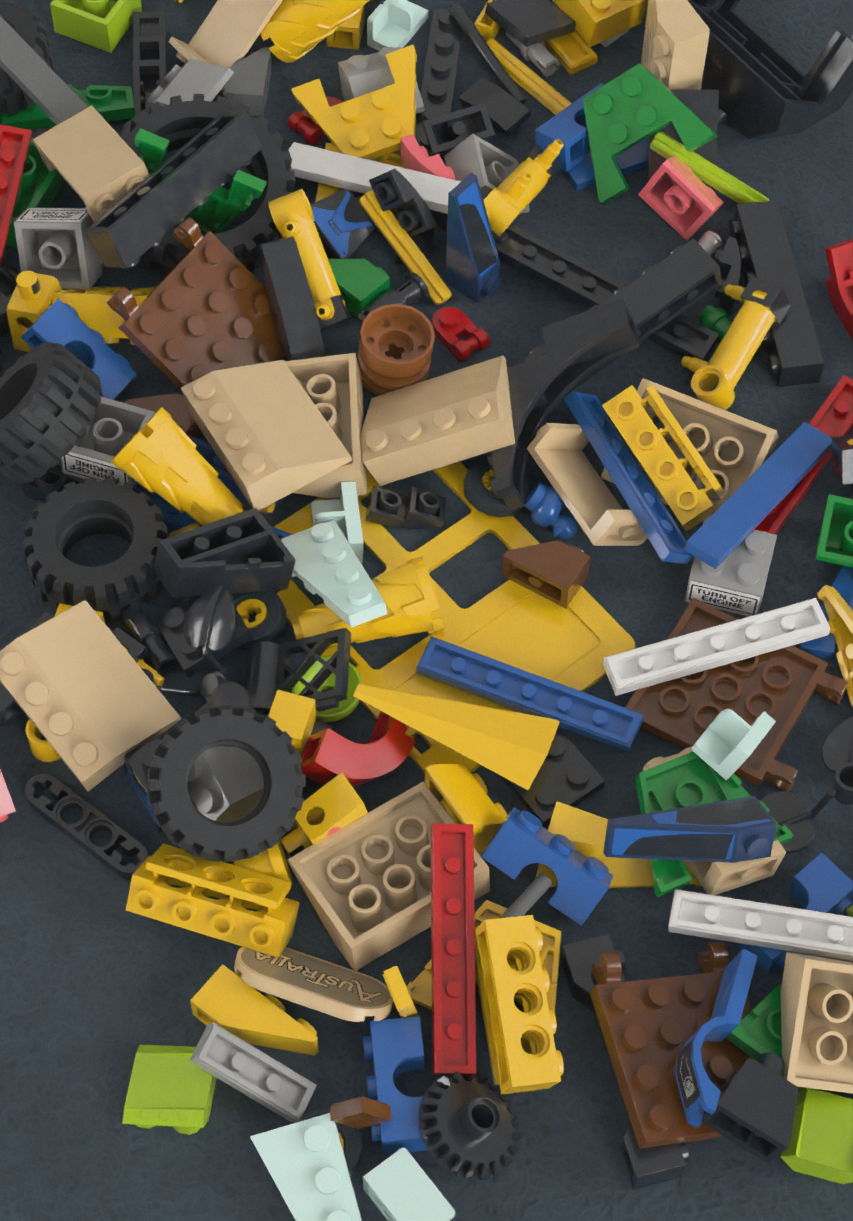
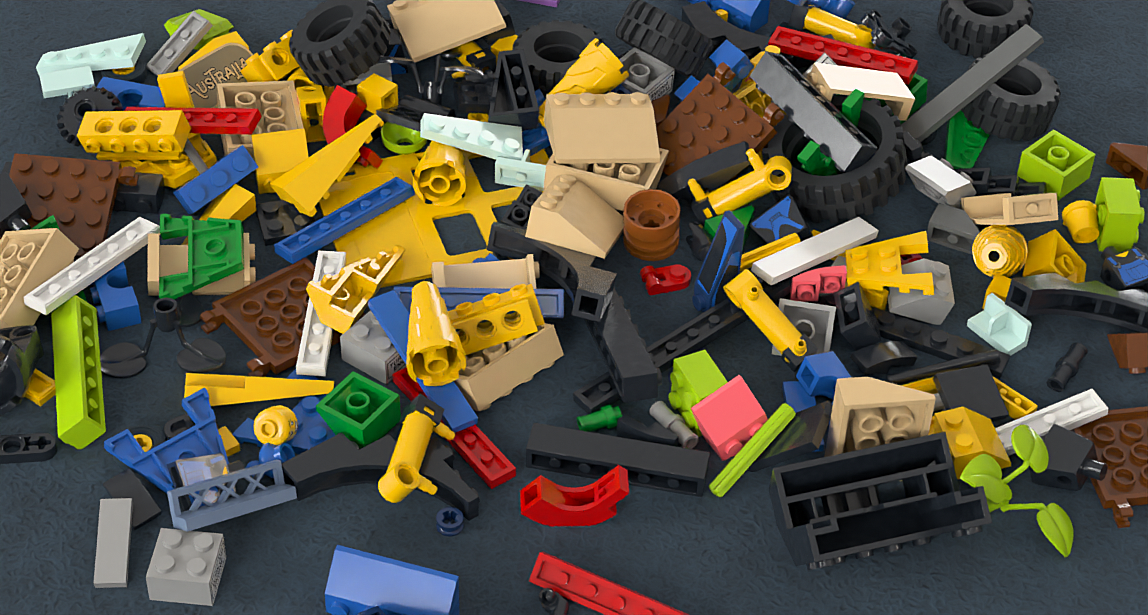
camera: 110 degrees right, 15 degrees down
(360, 1112) = (122, 67): reddish brown tile -> none
(398, 193) = (782, 237): black slope -> none
(548, 570) = (428, 248): reddish brown slope -> none
(627, 114) = (802, 394): green wing -> none
(655, 228) = (692, 381): none -> lime brick
(694, 1085) = (27, 176): blue piece -> none
(704, 832) = (173, 239): slope -> none
(708, 605) = (345, 295): none -> yellow wedge
(731, 741) = (238, 274): light aqua panel -> none
(756, 463) = (433, 344): none -> yellow cone
(762, 306) = (589, 417): yellow piece -> none

